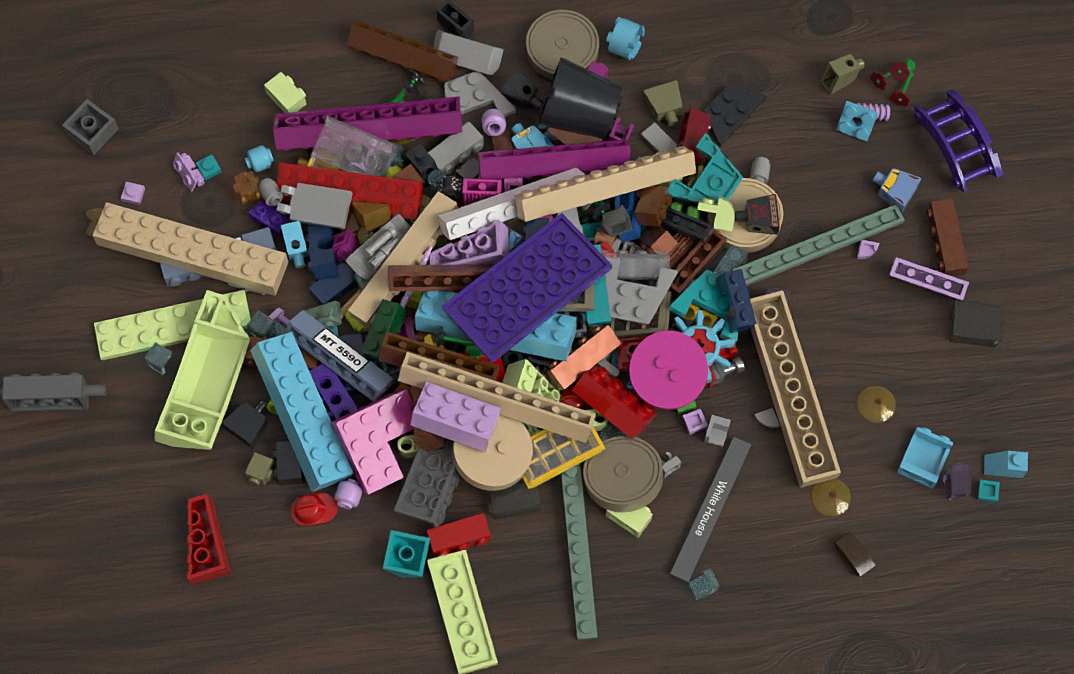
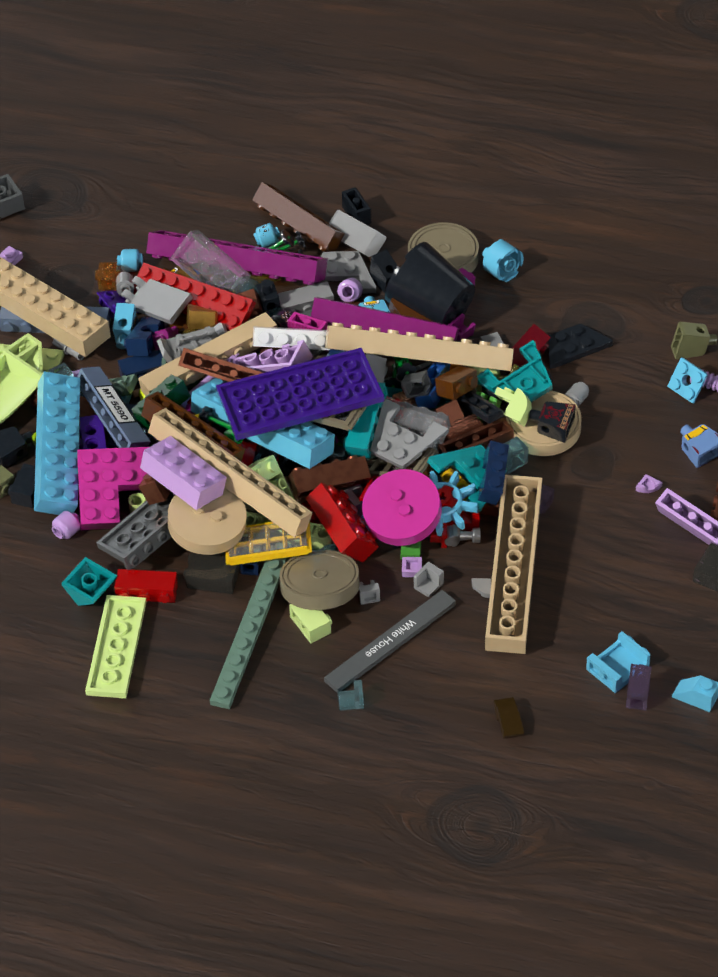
camera: 25 degrees right, 20 degrees down
(183, 165) = (65, 253): lavender hinge -> none
(208, 167) = (84, 256): teal plate -> none
(285, 94) = (179, 218): yellowish green brick -> none
(313, 509) = (29, 528): red piece -> none
(381, 83) = (267, 235): none -> medium azure head
(664, 102) = (514, 318): olive torso -> none
(821, 245) = (600, 463): sand green plate -> none
(827, 505) = (511, 674): clear yellow dish -> none
(876, 412) = (594, 608): clear yellow dish -> none
(988, 491) = (668, 710): teal tile -> none

